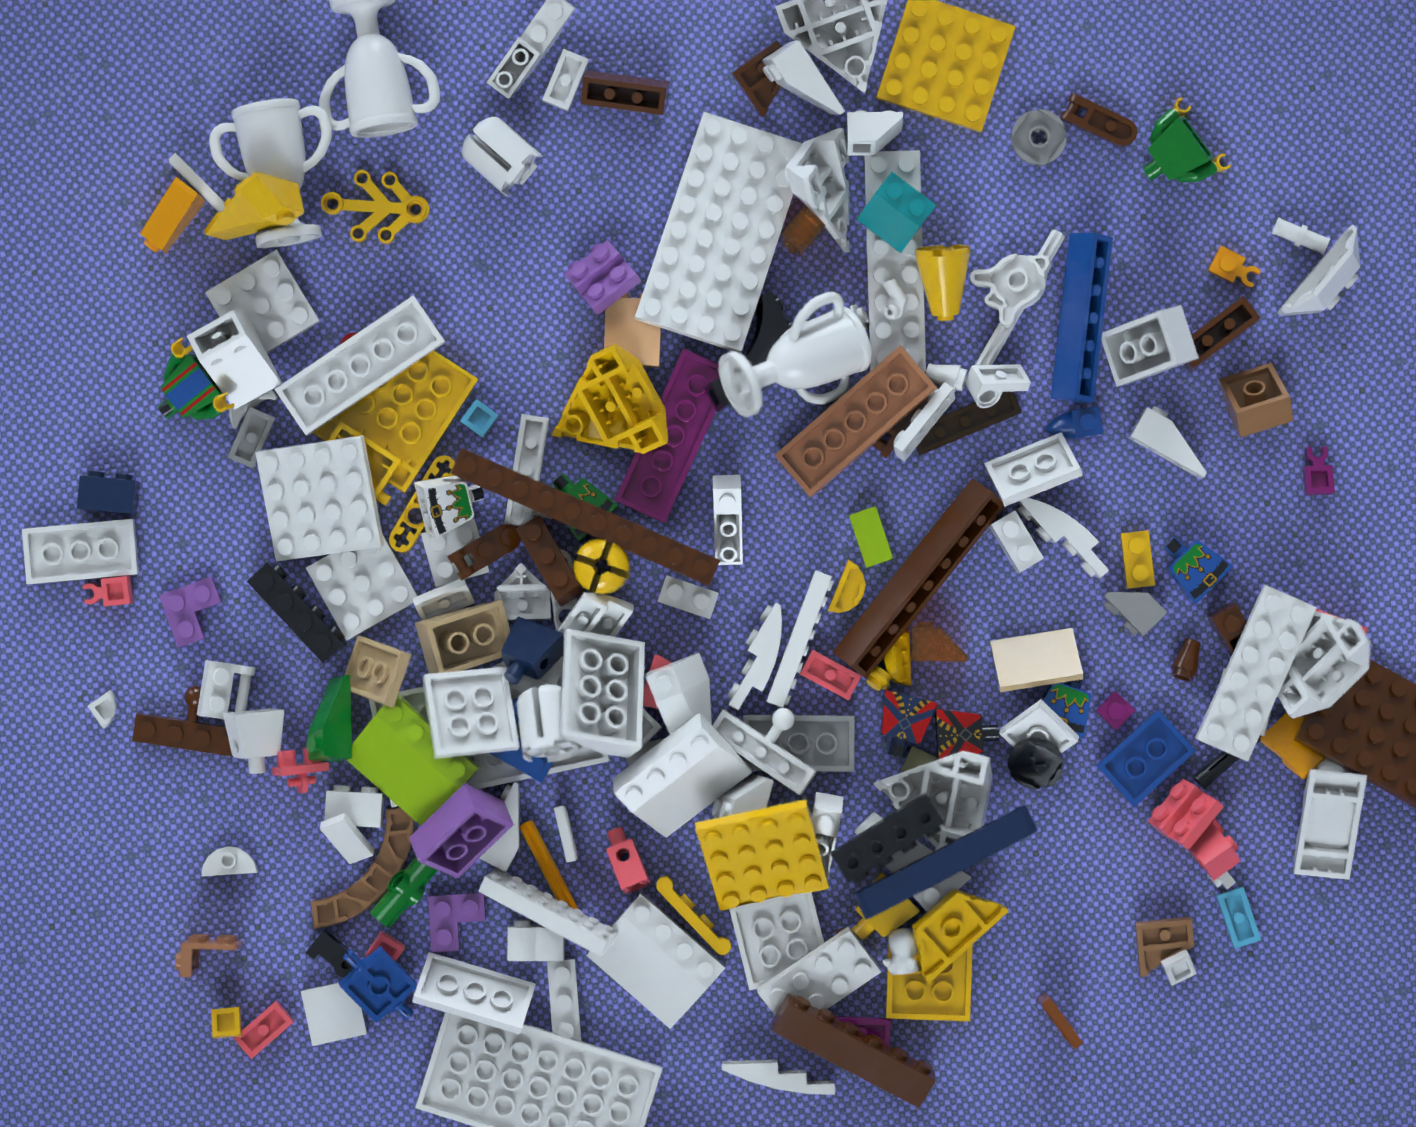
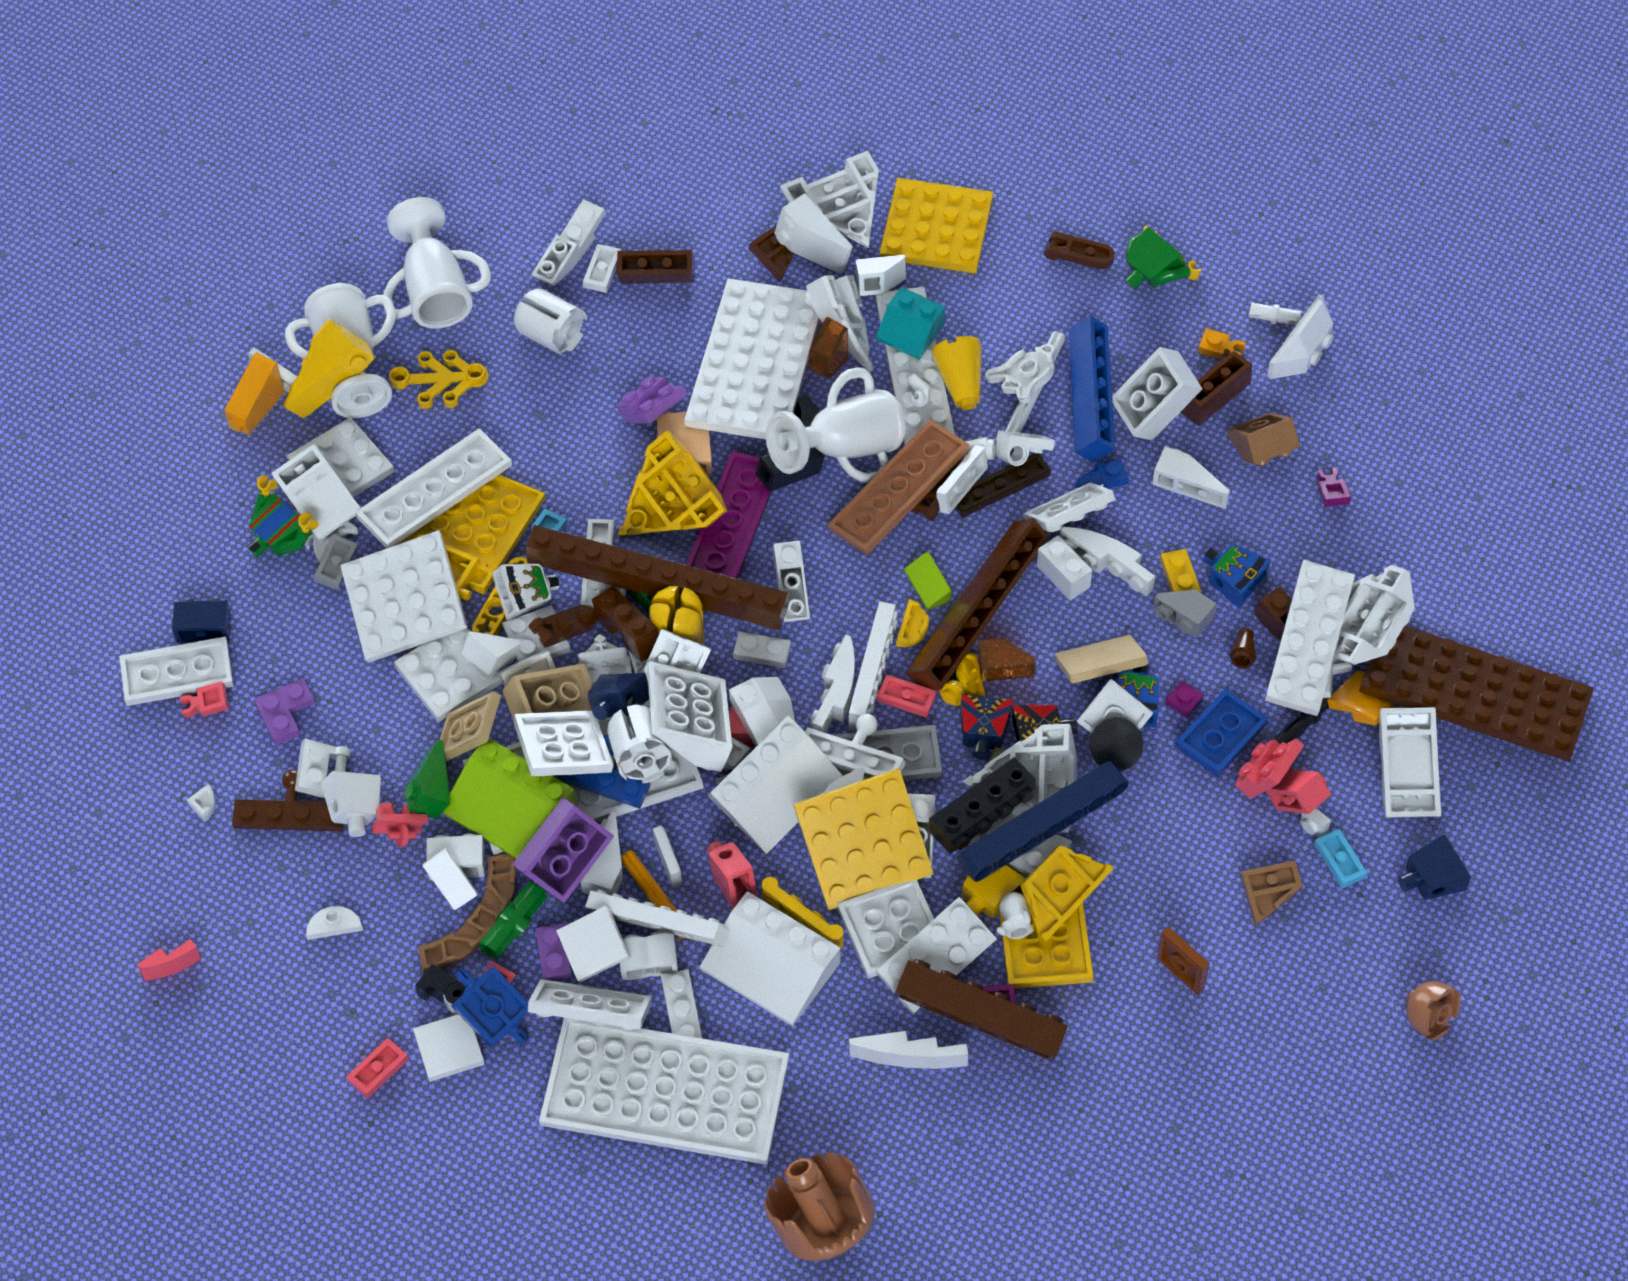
camera: 10 degrees left, 30 degrees down
(60, 891) = (162, 965): none -> coral slope
(188, 958) = (314, 987): nougat bracket -> none
(226, 1022) = (338, 1061): yellow tile -> none
(296, 612) = (388, 696): black brick -> none
(405, 580) = (490, 651): none -> white slope
(482, 931) = (593, 943): none -> white tile
(1040, 153) = (1028, 279): light grey plate -> none
(1178, 967) = (1291, 908): white tile -> none
(1292, 1096) = (1432, 1007): none -> nougat cylinder
(1329, 943) = (1435, 870): none -> dark blue torso

